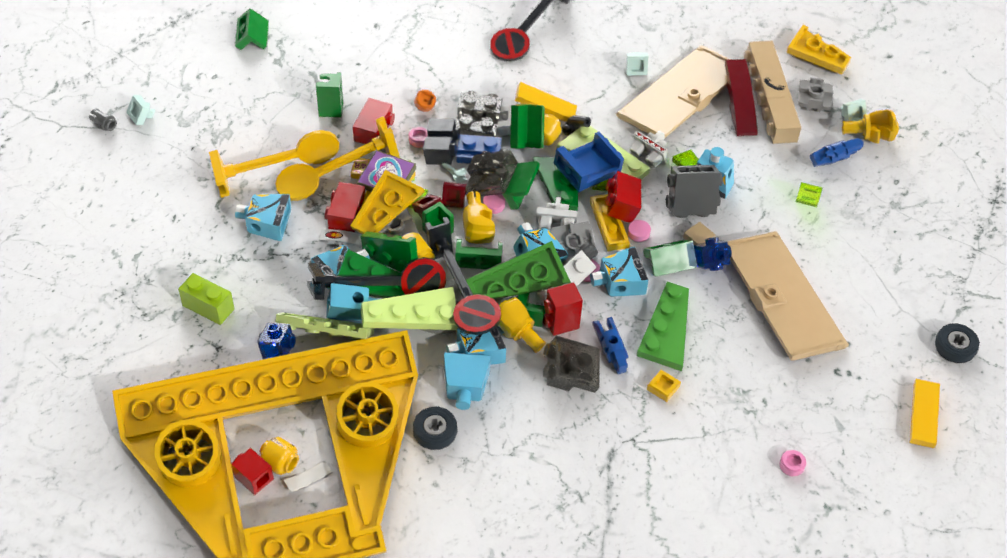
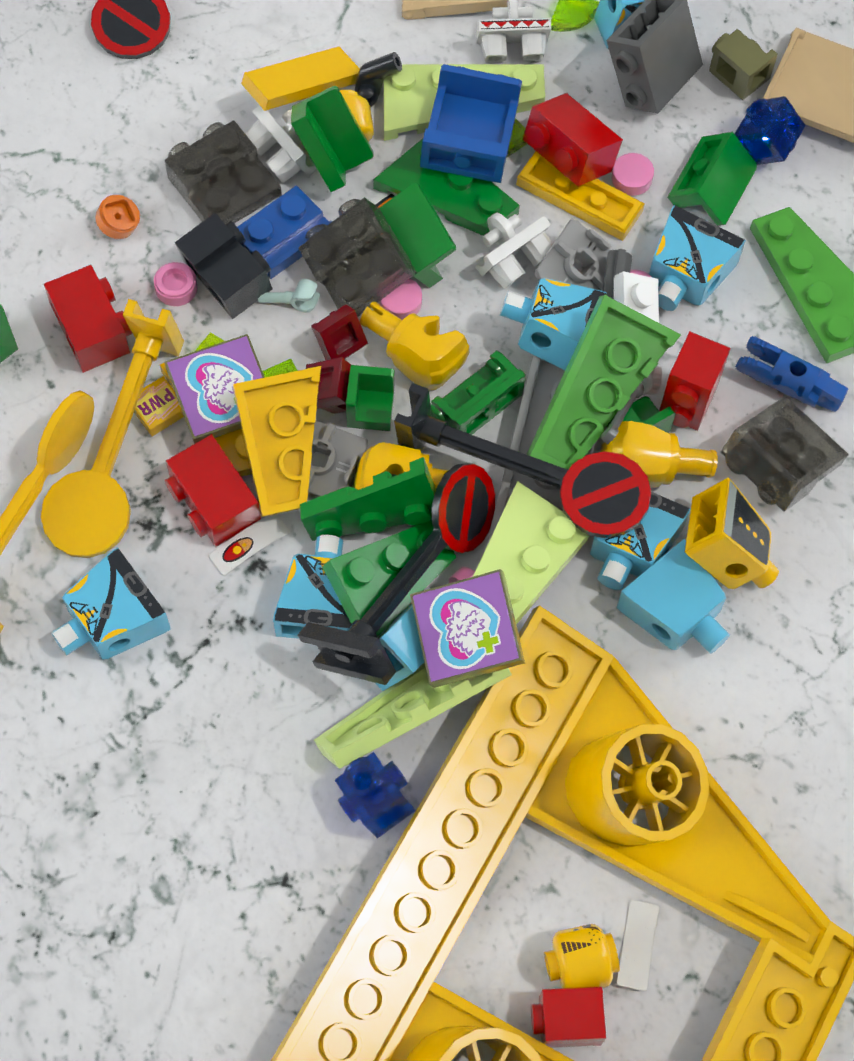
camera: 45 degrees left, 15 degrees up
(206, 298) = (189, 826): lime brick -> none
(363, 305) = (467, 628): none -> tile
(435, 439) = (740, 706): black bush -> none
(502, 294) = (611, 432): none -> dark grey hinge
(508, 371) = (729, 537): none -> yellow torso
(698, 233) = (712, 115): tan tile -> none
(733, 224) = (741, 63): none -> olive brick

